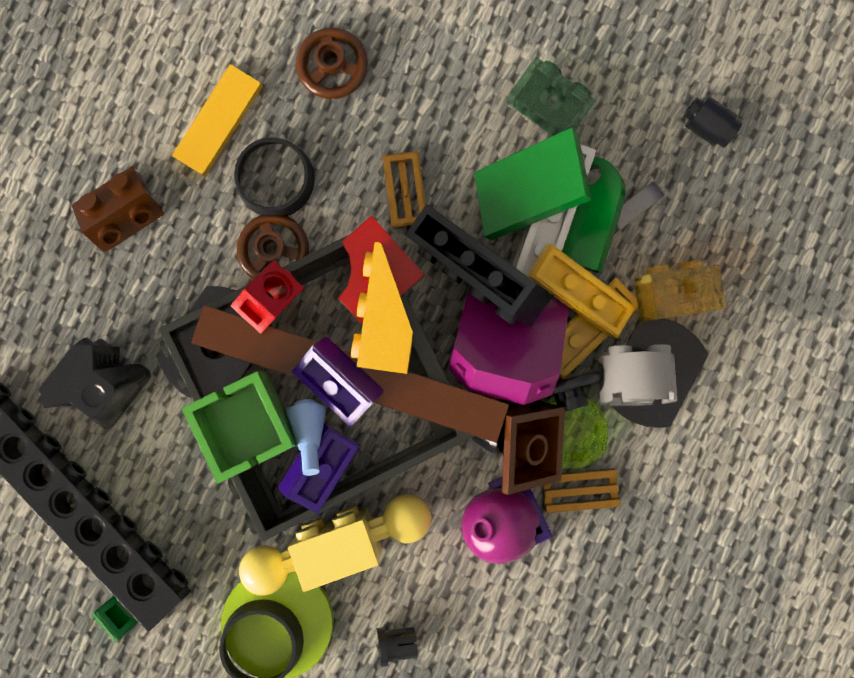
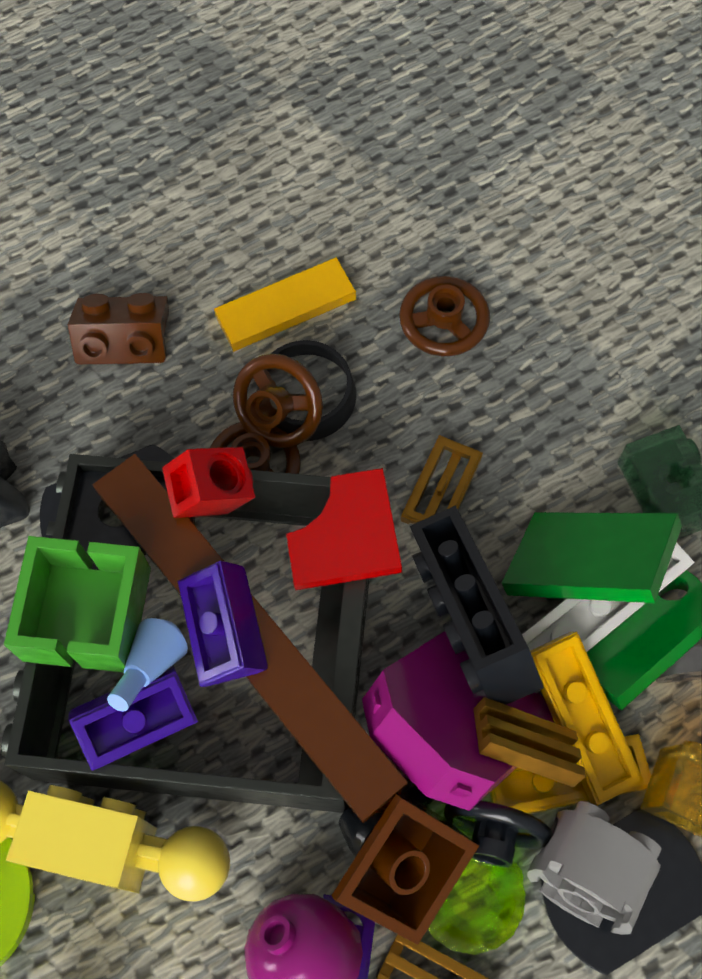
camera: 35 degrees right, 20 degrees down
(264, 205) = (260, 416): none -> reddish brown piece
(386, 328) = (316, 594): yellow slope -> none
(559, 328) = (528, 742): none -> pearl gold tile

